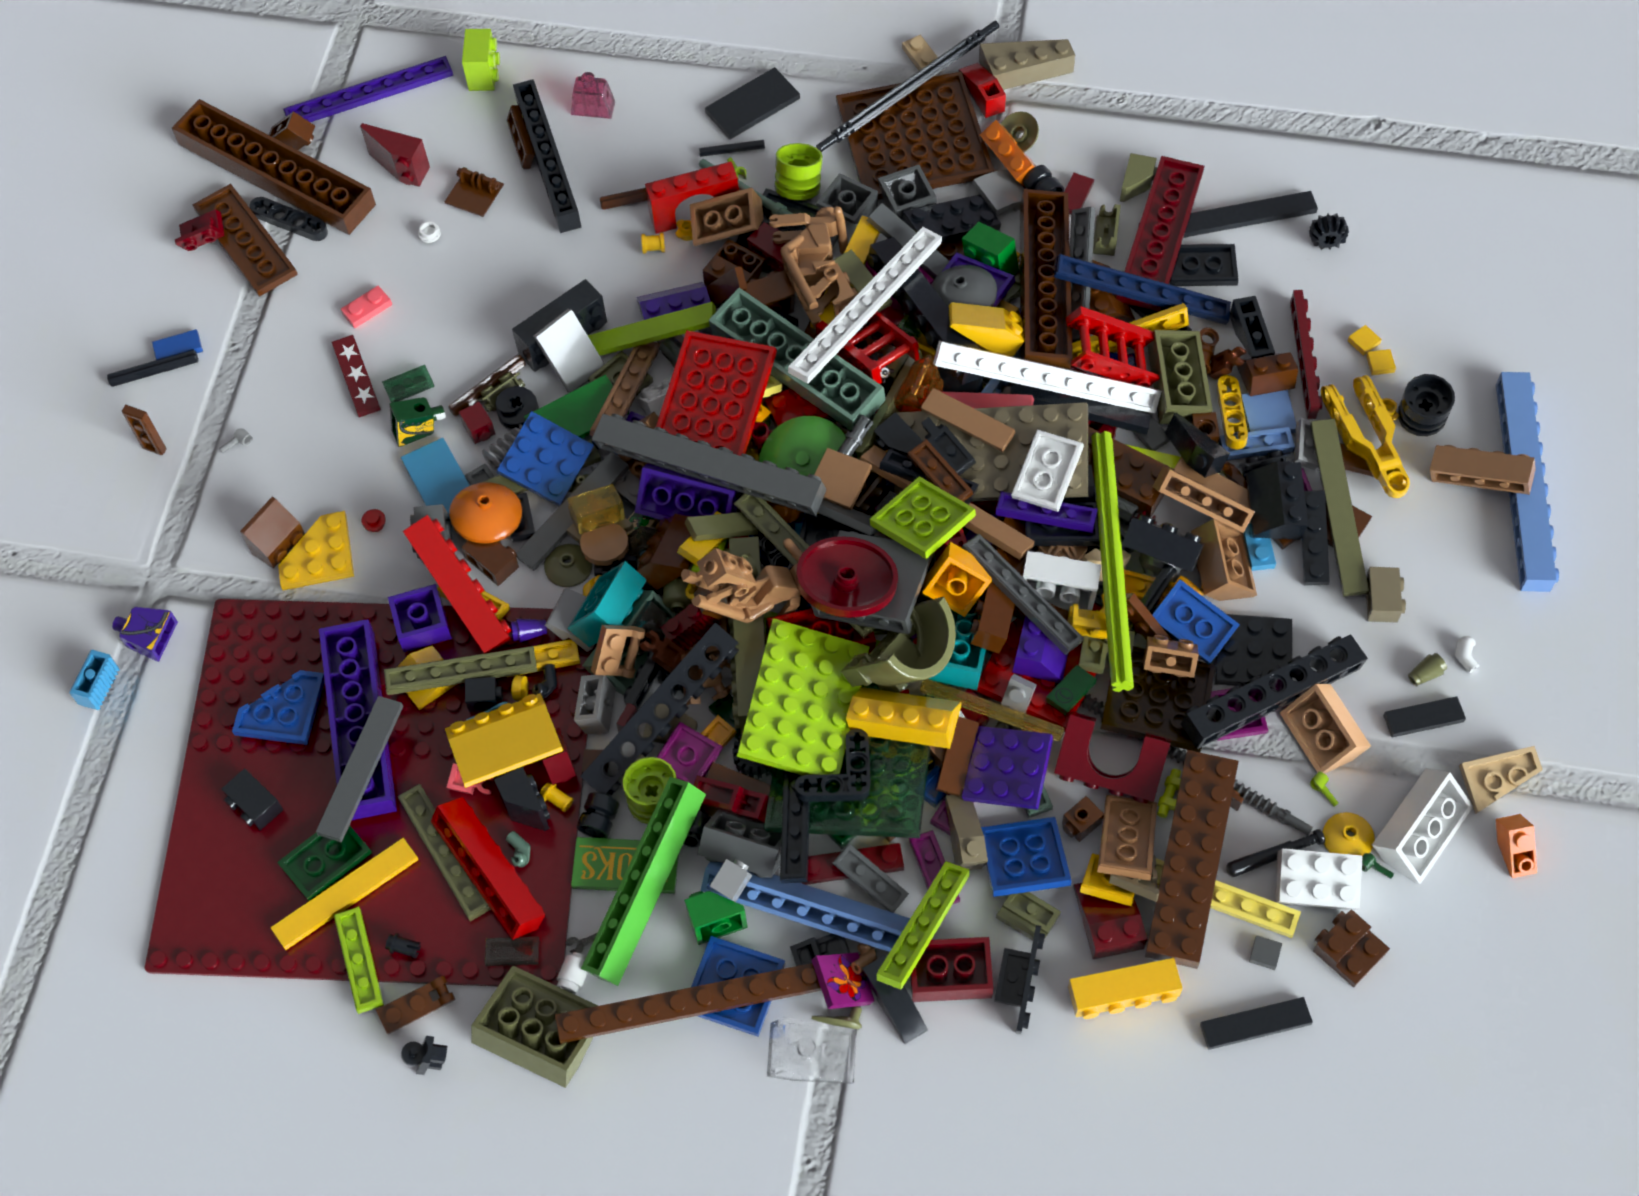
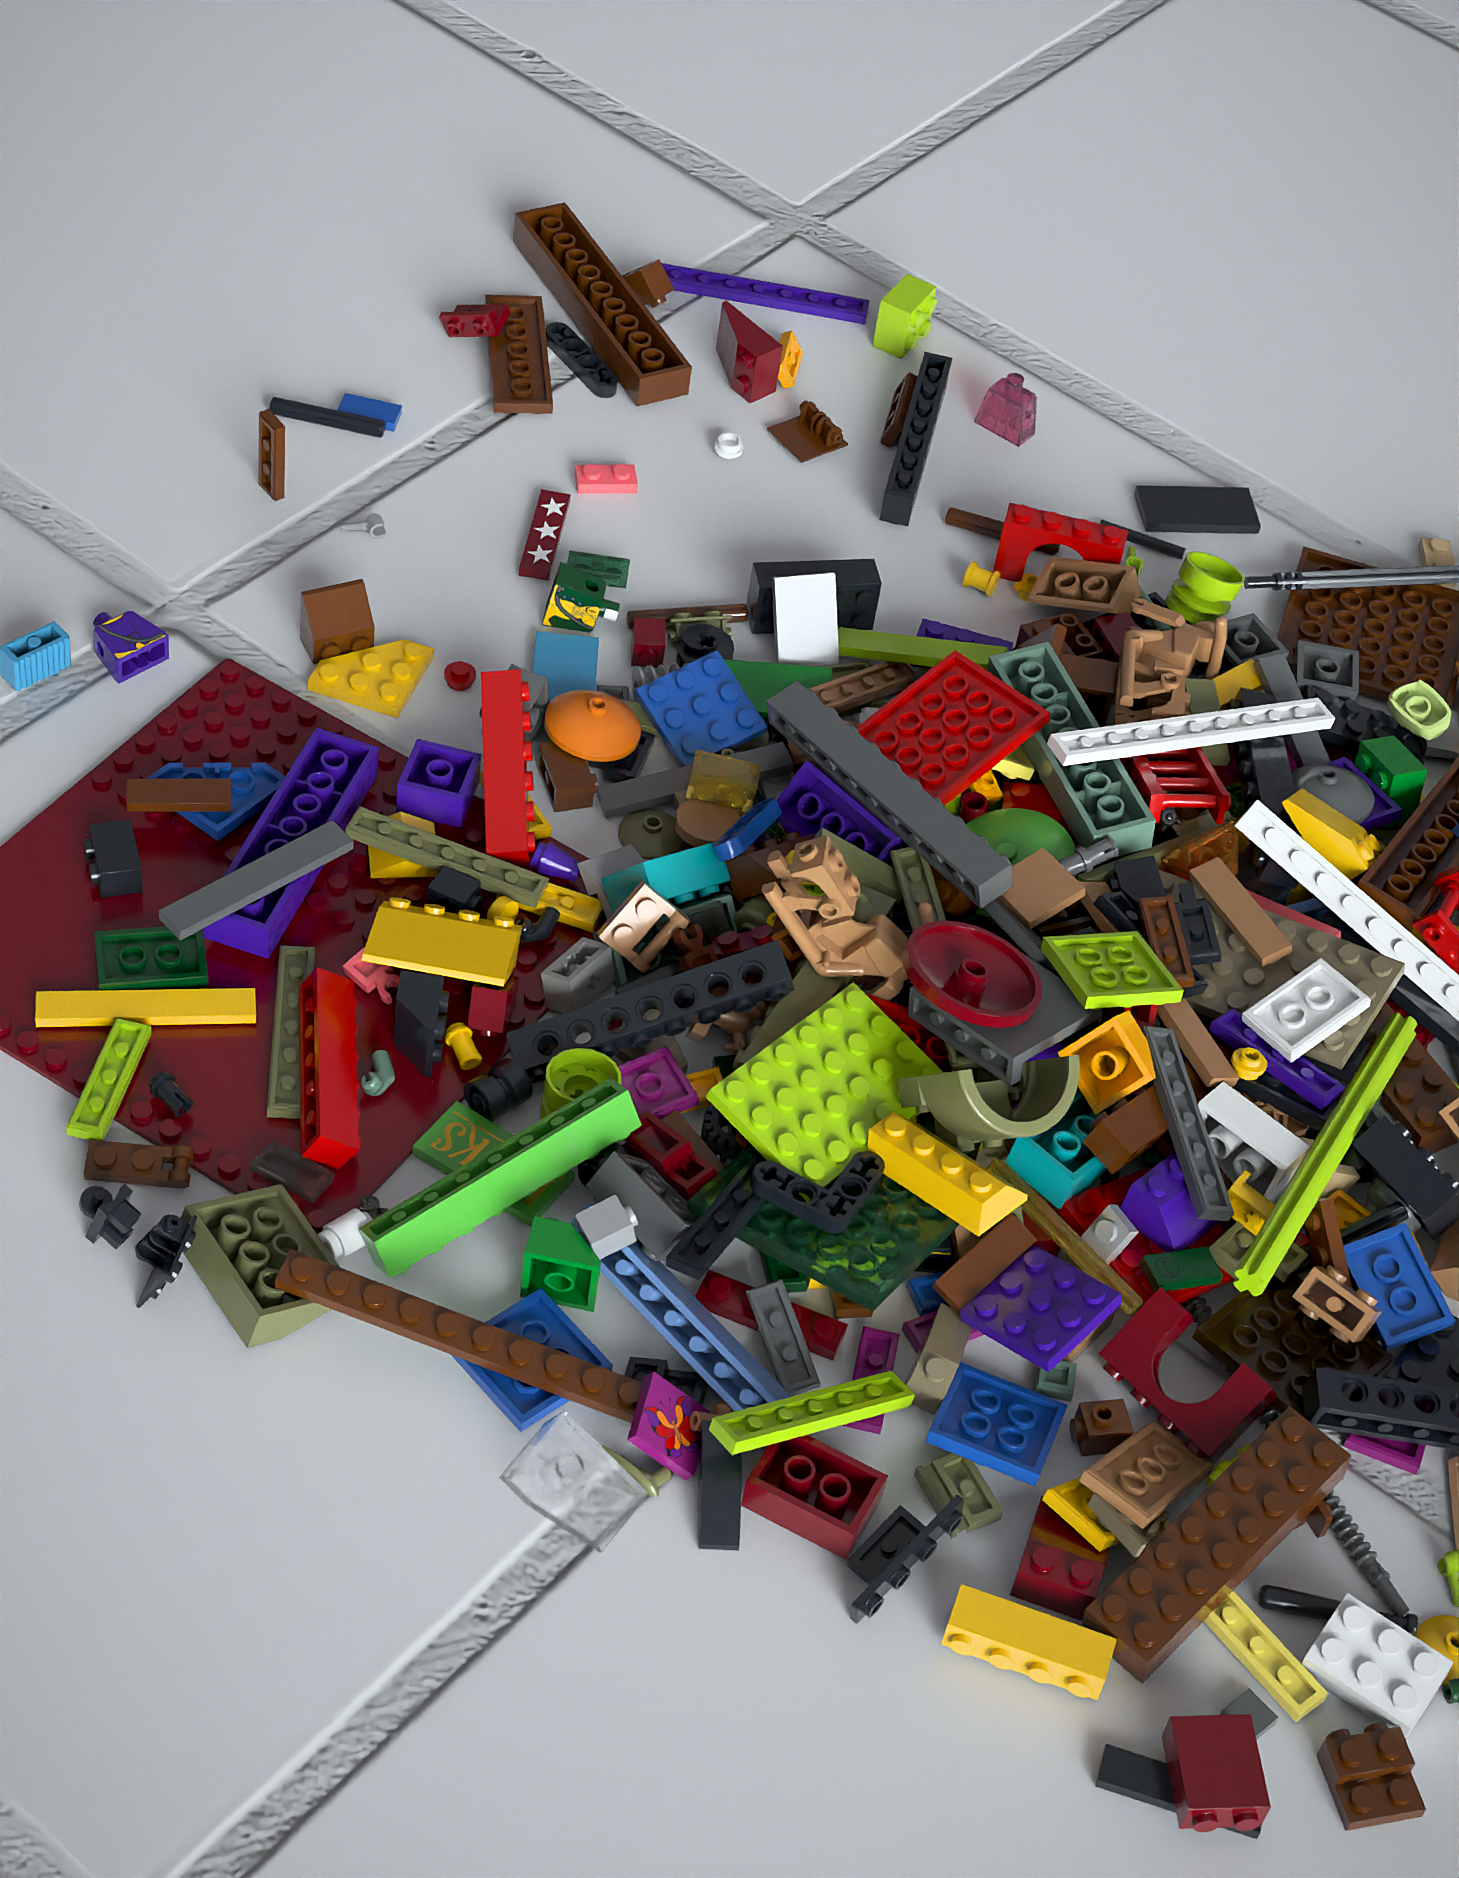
camera: 20 degrees right, 15 degrees down
(263, 730) = (178, 795): none -> reddish brown tile
(422, 130) = (790, 359): none -> light orange plate
(477, 1057) = (162, 1249): none -> black hinge
(636, 539) = (746, 829): none -> blue beam
(980, 188) = (1420, 709): none -> yellowish green piece
(1034, 527) = (1248, 1063): none -> yellow plate
(1272, 1004) = (1215, 1772): none -> dark red brick

